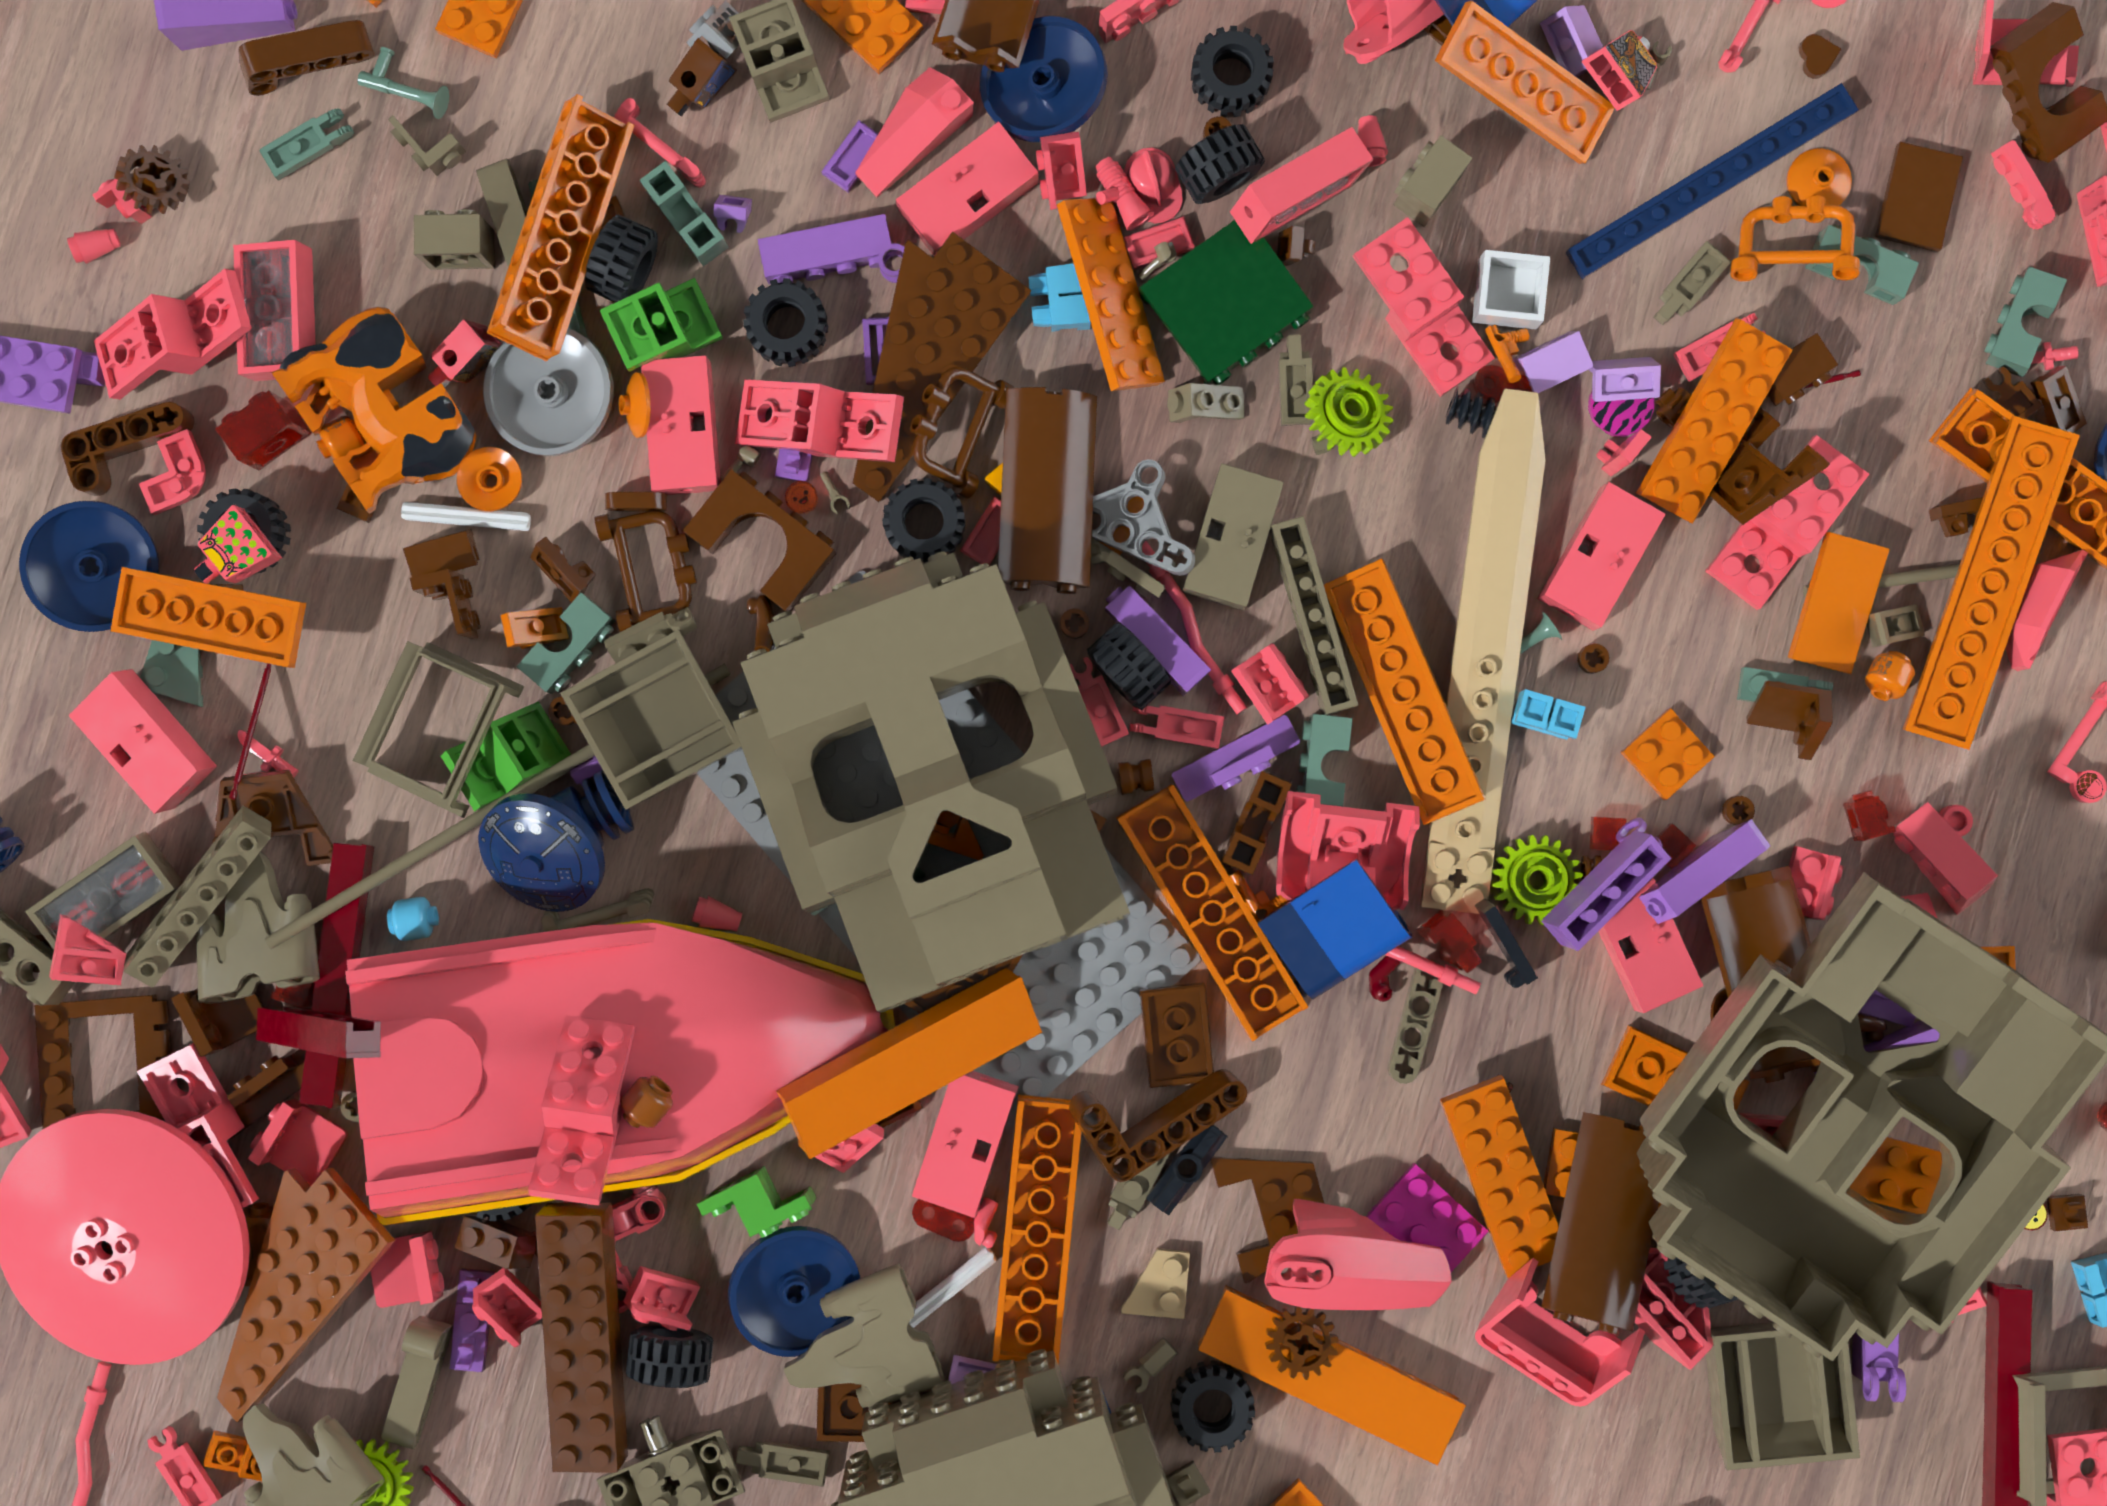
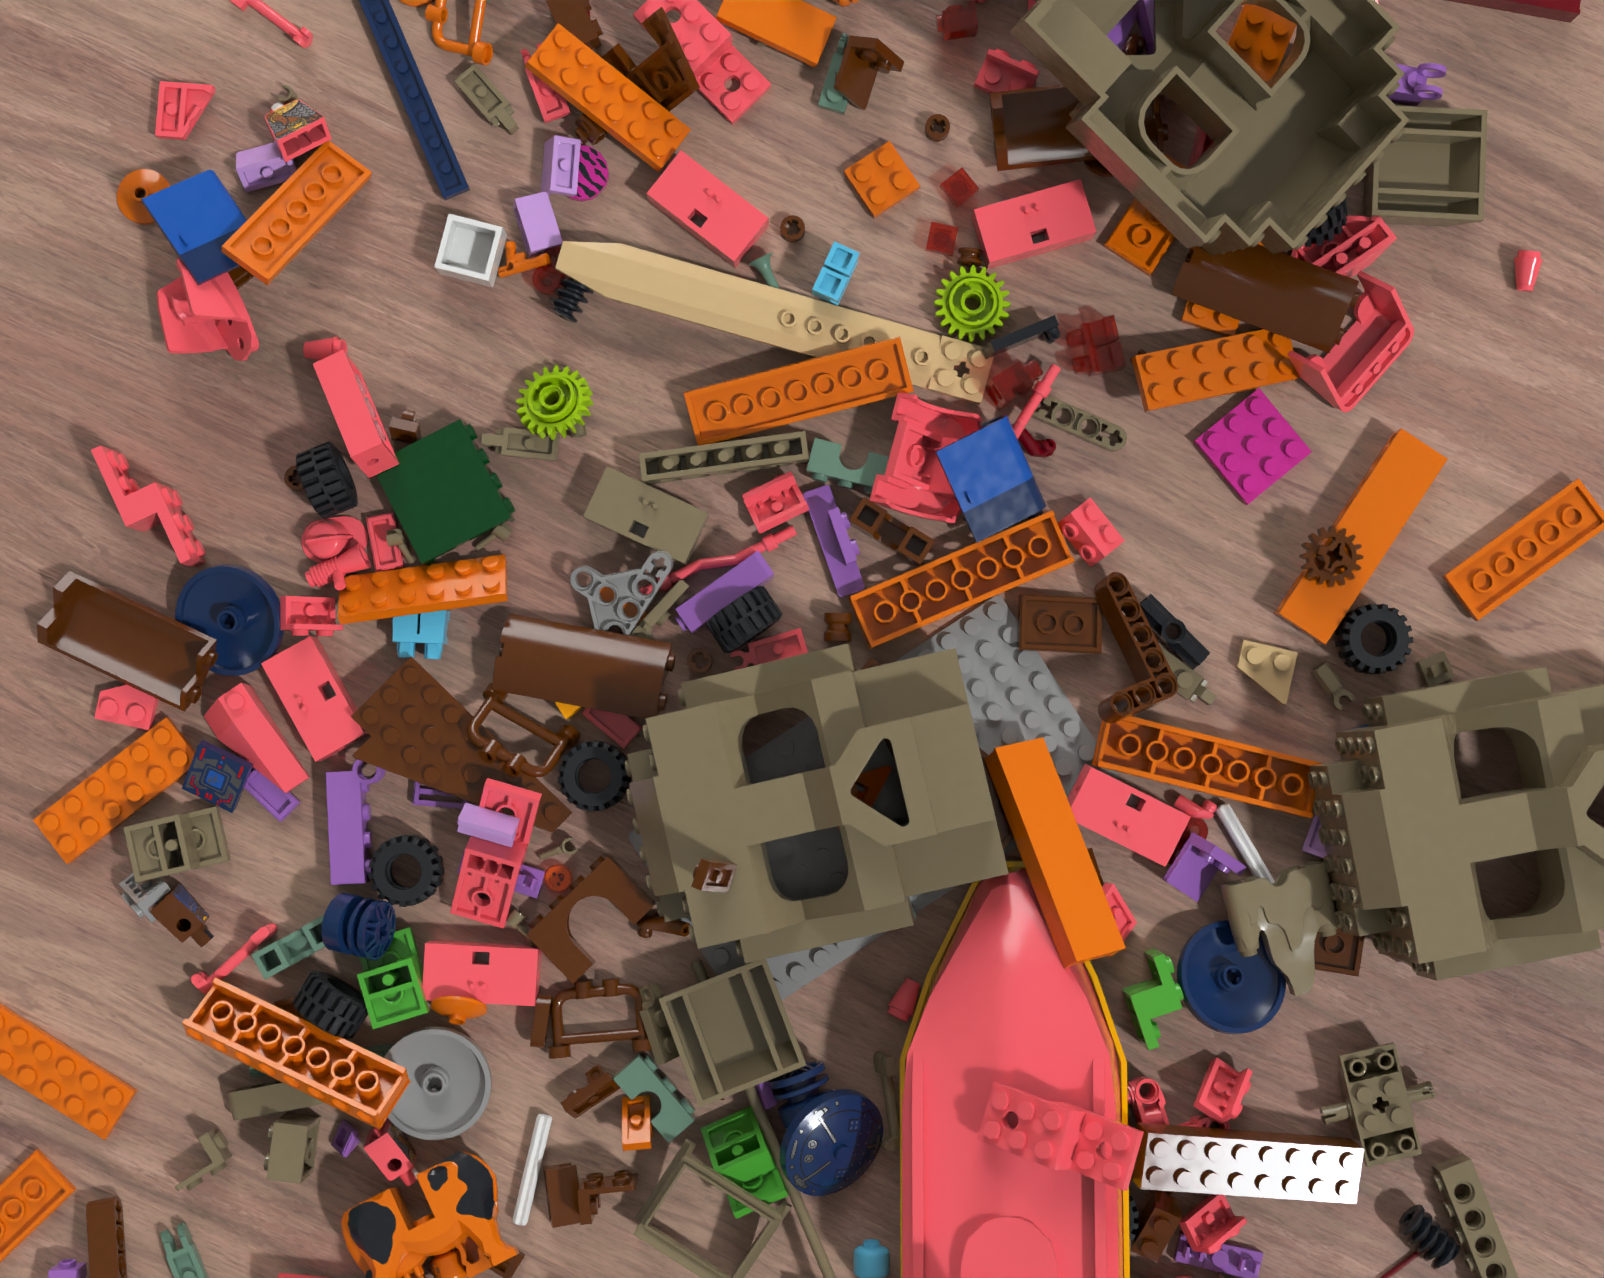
camera: 85 degrees left, 0 degrees up
(436, 100) = (167, 1147): sand green piece -> none
(472, 300) = (345, 1138): none -> medium lavender slope
(475, 471) = (496, 1157): orange dish -> none
(553, 713) = (712, 1117): reddish brown bush -> none
(646, 1102) = (1060, 1079): dark orange head -> none
(669, 1357) = (1273, 1091): black tyre -> none
(714, 277) = (358, 926): none -> dark blue wheel
(732, 208) = (300, 903): medium lavender tile -> none
(785, 1462) = (1373, 1004): dark tan hinge -> none
(825, 666) = (713, 875): none -> reddish brown hinge
(850, 406) = (488, 825): none -> lavender panel
(863, 92) = (217, 776): none -> dark blue tile
(917, 1234) = (1198, 865): none -> medium lavender bracket
(1182, 726) = (800, 581): coral hinge -> none
(1189, 373) = (501, 532): none -> dark tan hand
(1206, 402) = (527, 522): dark tan bracket -> none
(1236, 46) = (230, 444): black tyre -> none
(1258, 900) = (956, 538): orange hose -> none
(1275, 1187) = (1213, 551): reddish brown wing -> none
(1289, 1056) = (1090, 532): none -> coral bracket
(1356, 1264) = (1272, 505): coral piece -> none
(1423, 306) = (474, 326): coral bracket -> none
(1436, 174) = (373, 307): dark tan brick -> none
(1509, 1037) = (1099, 345): none -> clear red hips
(1607, 886) = (987, 245): medium lavender hinge -> none
(1622, 454) = (624, 177): coral hinge -> none
(1704, 870) = (985, 163): medium lavender slope -> none

